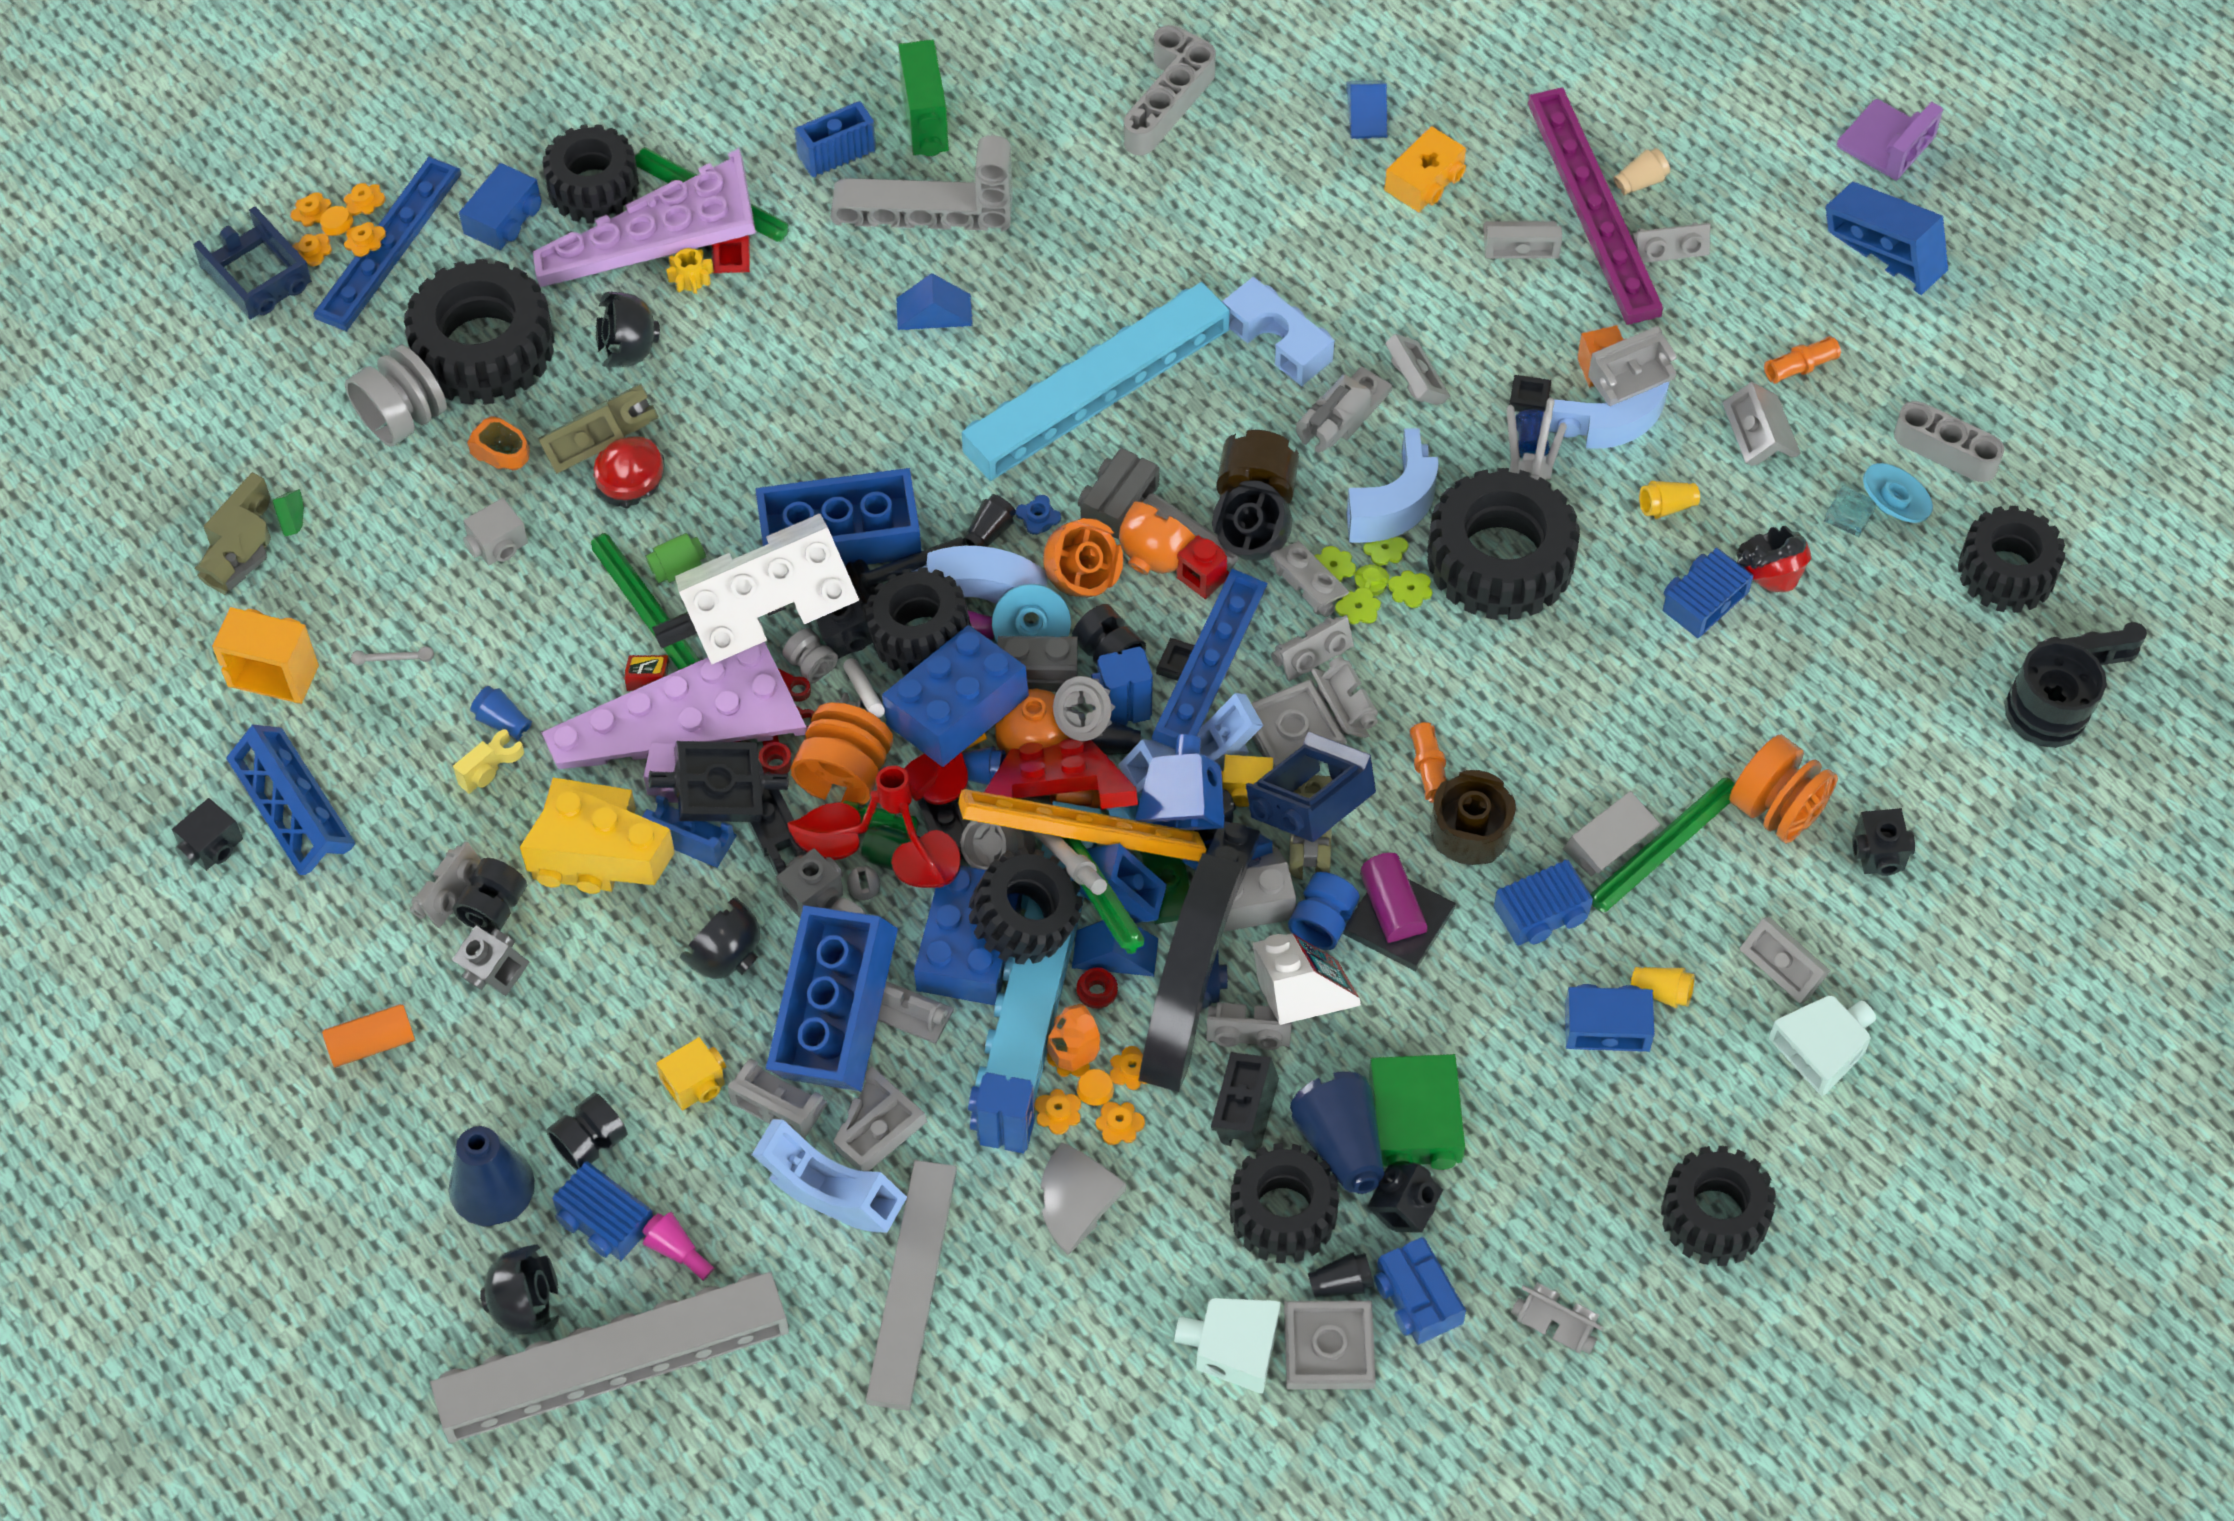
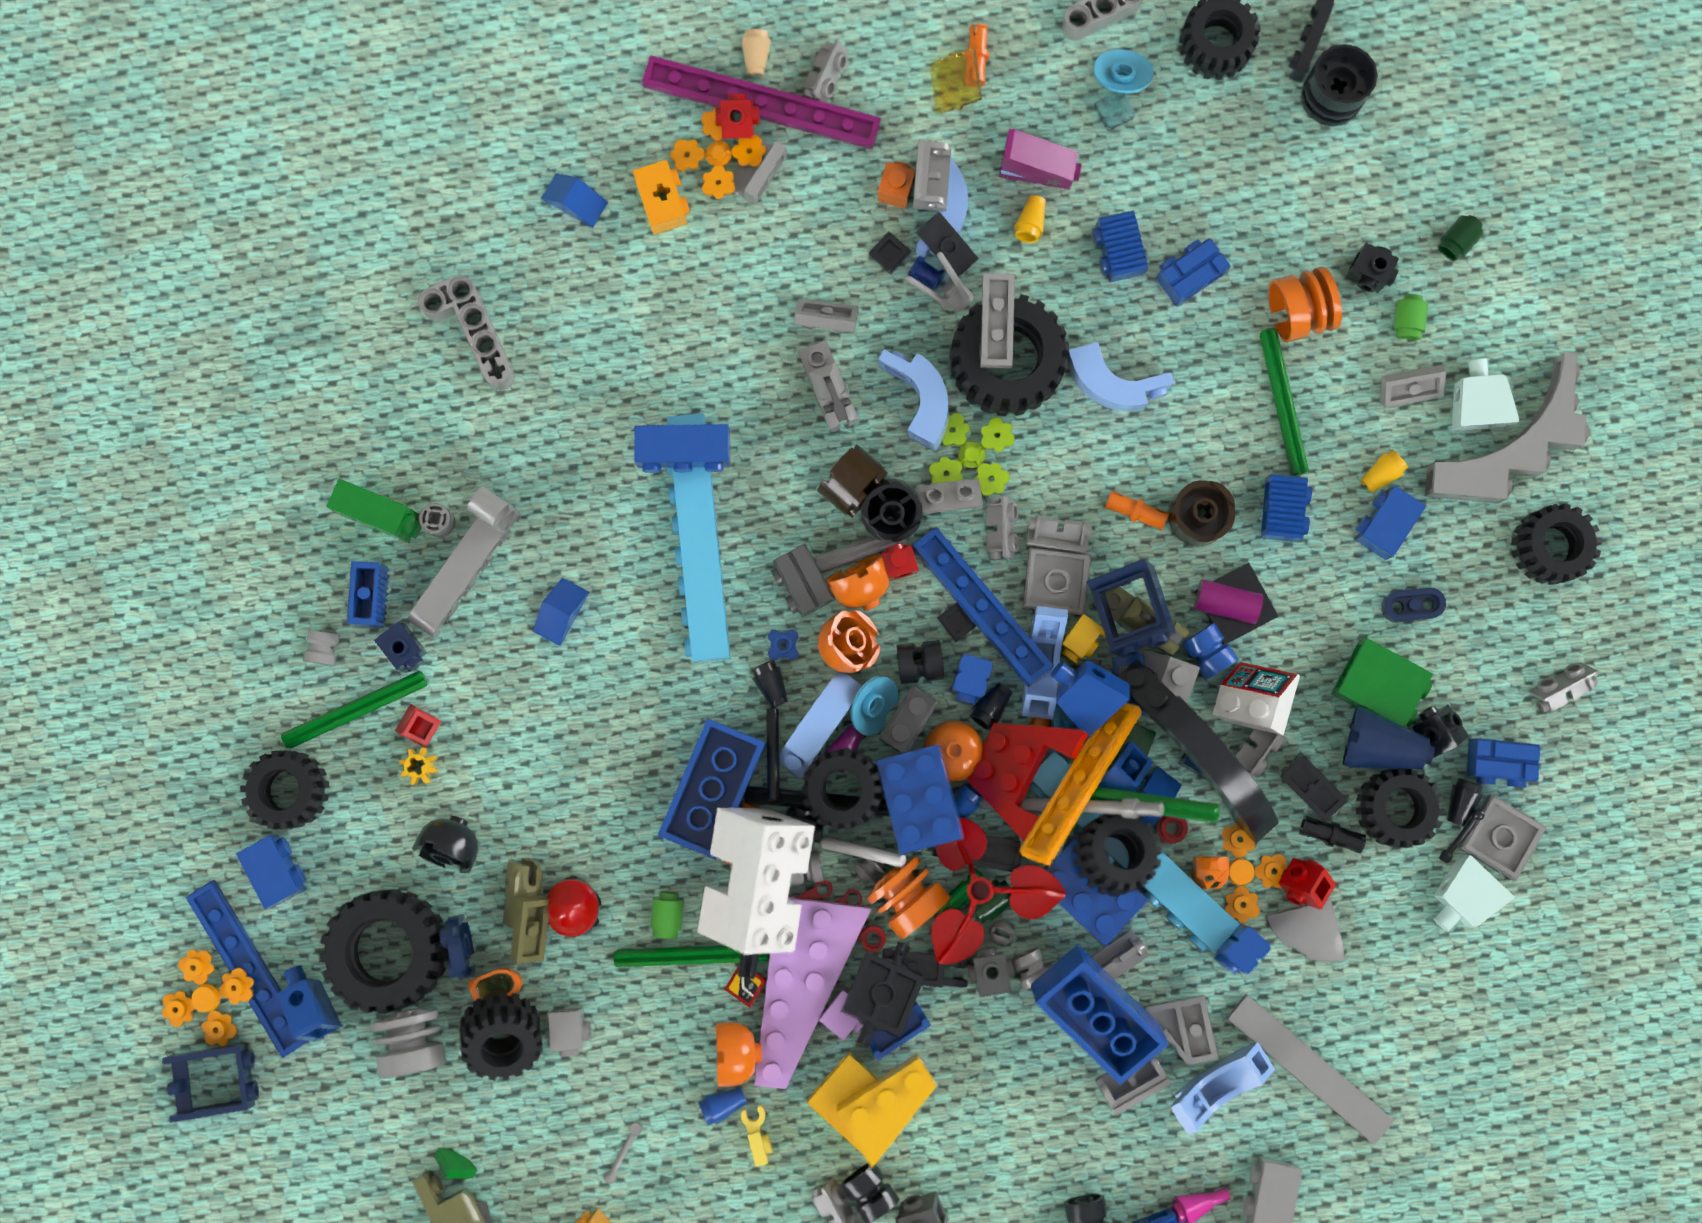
camera: 60 degrees left, 25 degrees up
(378, 301) = (307, 1006): none -> blue torso
(426, 462) = (498, 1016): none -> black tyre
(523, 387) = (460, 947): none -> dark blue plate
(562, 682) = (736, 1054): none -> orange cylinder
(672, 218) = (367, 761): lavender wing -> none
(692, 1073) = (1084, 1128): yellow brick -> none
(725, 943) = (1001, 1054): black cylinder -> none
(755, 133) = (321, 647): none -> light grey wheel
(802, 194) = (401, 647): none -> dark blue brick
(952, 158) = (441, 524): none -> light grey wheel
(1073, 722) = (981, 729): light grey gear -> none
(1131, 1158) = (1307, 883): none -> red brick
(1178, 301) = (682, 447): none -> blue brick
(1204, 1157) = (1332, 834): none -> black pin
(1260, 310) = (759, 377): light blue arch -> none
(1335, 1293) = (1447, 854): none -> black hinge
(1510, 198) = (718, 155): none -> light orange plant
(1523, 489) = (997, 320): none -> light grey plate
(1536, 1099) = (1412, 605): none -> dark blue plate
(1545, 678) = (1109, 390): none -> light blue arch
(1556, 180) = (725, 117): none -> red brick
(1573, 423) = (943, 238): none -> black plate
(1611, 834) = (1261, 432): light grey hinge -> none
(1732, 460) = (1038, 161): none -> slope
(1735, 673) = (1192, 271): none -> blue brick
(1758, 352) = (955, 81): none -> clear yellow piece
(1759, 424) = (1006, 112): light grey panel -> none
(1775, 558) = (1124, 185): hair -> none
(1854, 1130) = (1552, 427): none -> light grey arch
(1861, 916) = (1411, 317): none -> bright green brick
(1994, 918) = (1461, 237): none -> dark green brick

